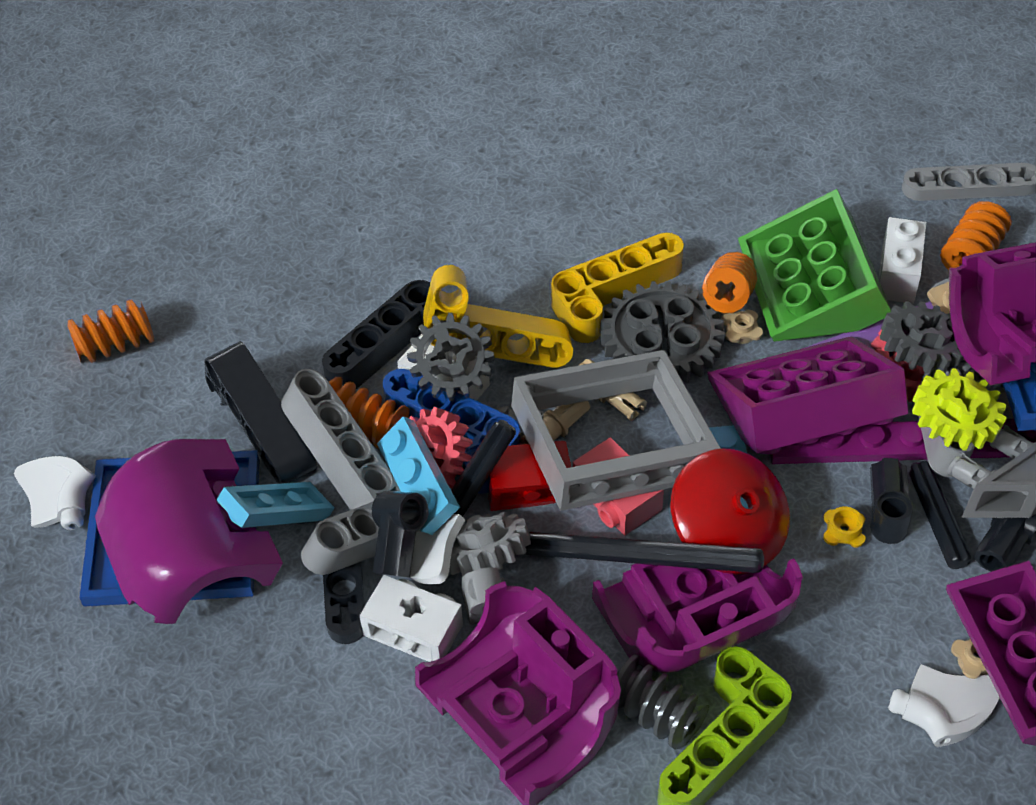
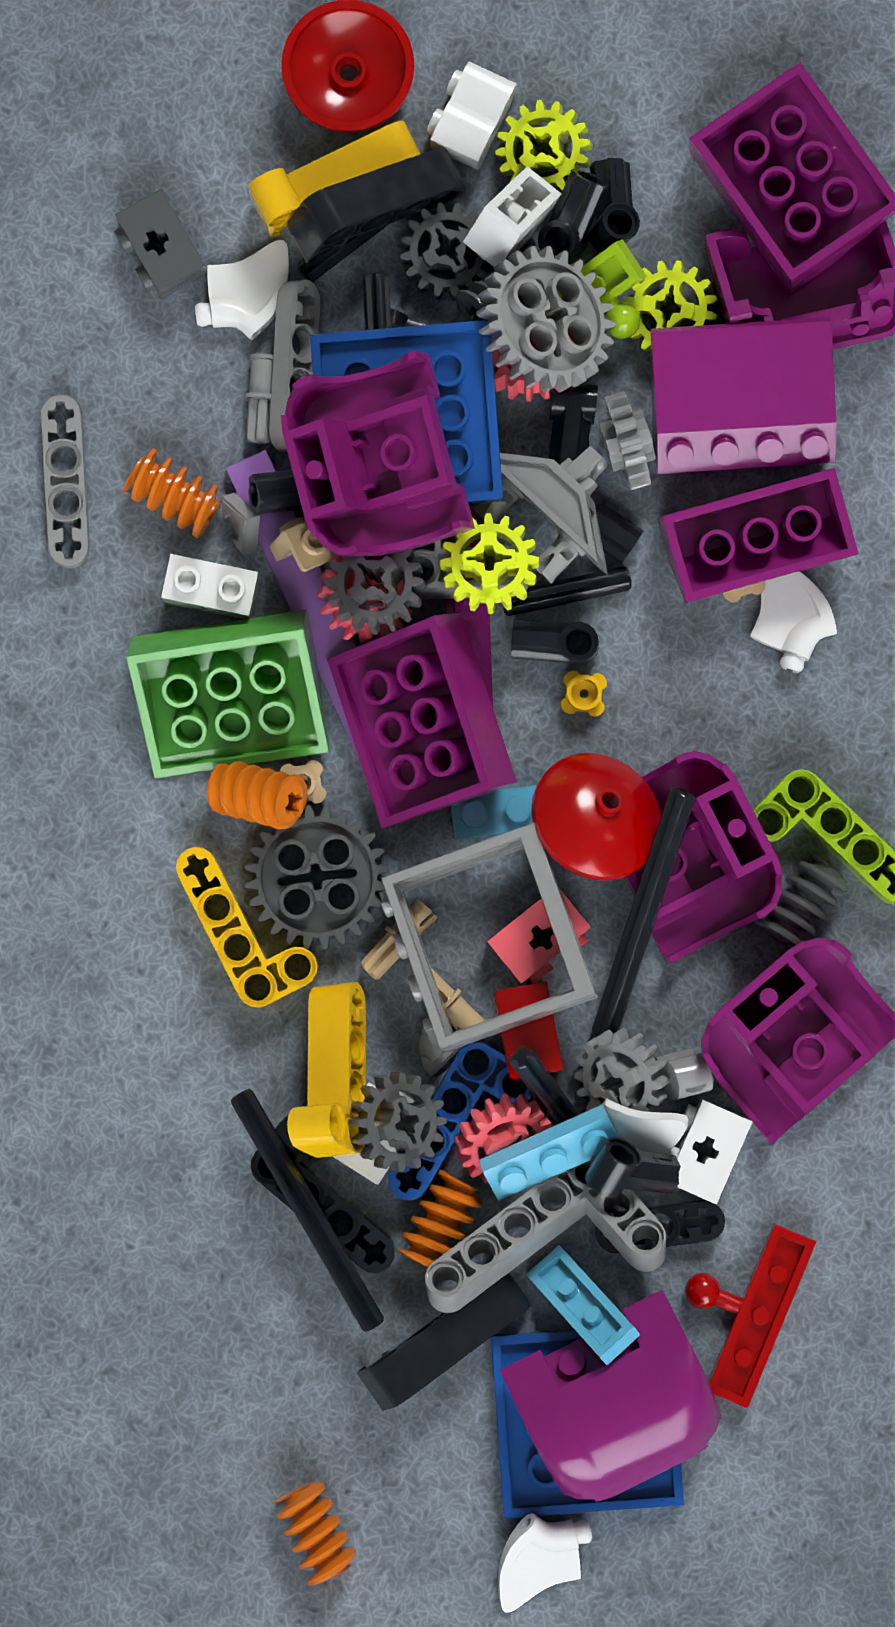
camera: 95 degrees left, 35 degrees up
(253, 666) = (757, 1313): none -> red plate
(365, 315) = (307, 1210): none -> black axle

